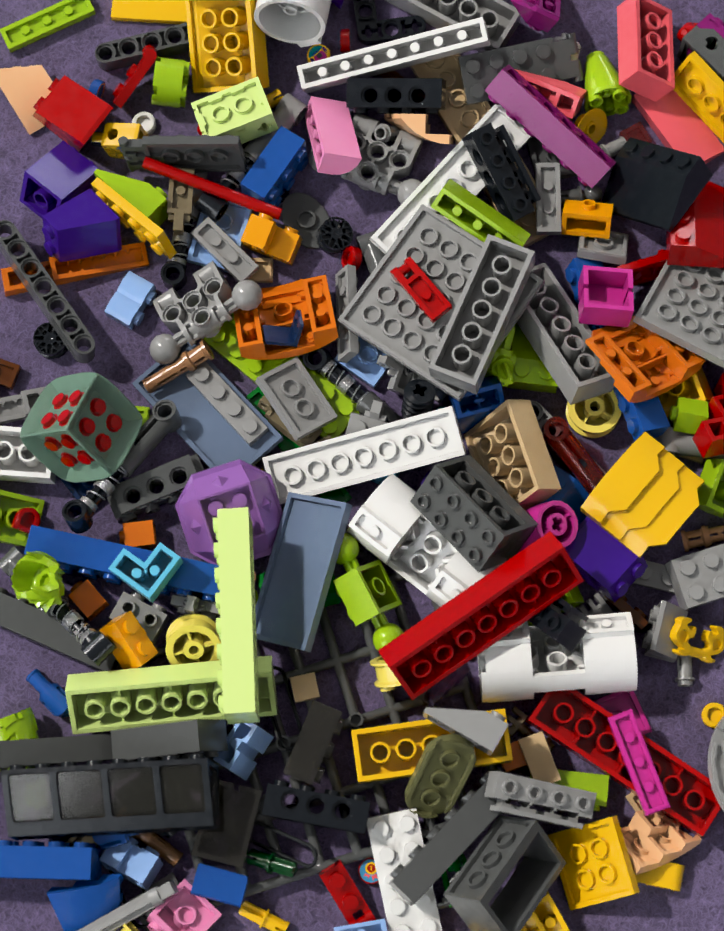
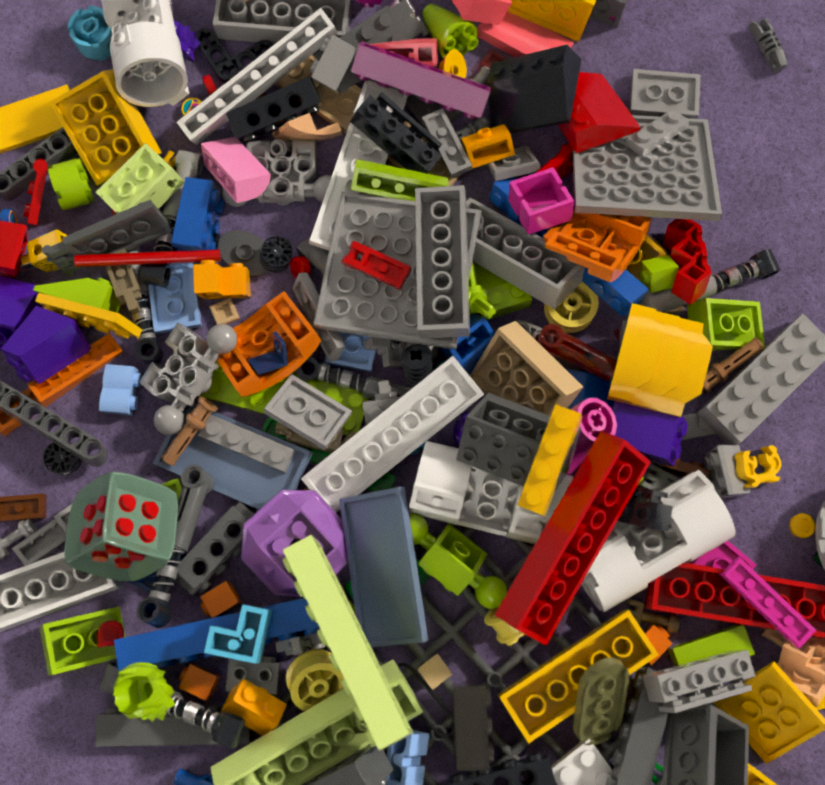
camera: 25 degrees left, 0 degrees up
(146, 120) = (65, 226): white tile -> none
(224, 250) = (184, 308): light grey plate -> none
(472, 74) = (333, 63): none -> light grey brick
(474, 549) = (549, 460): none -> yellow arch
(479, 727) = (615, 643): light grey slope -> none
(539, 758) = (676, 639): tan tile -> none
(684, 671) = (759, 500): light grey pin -> none

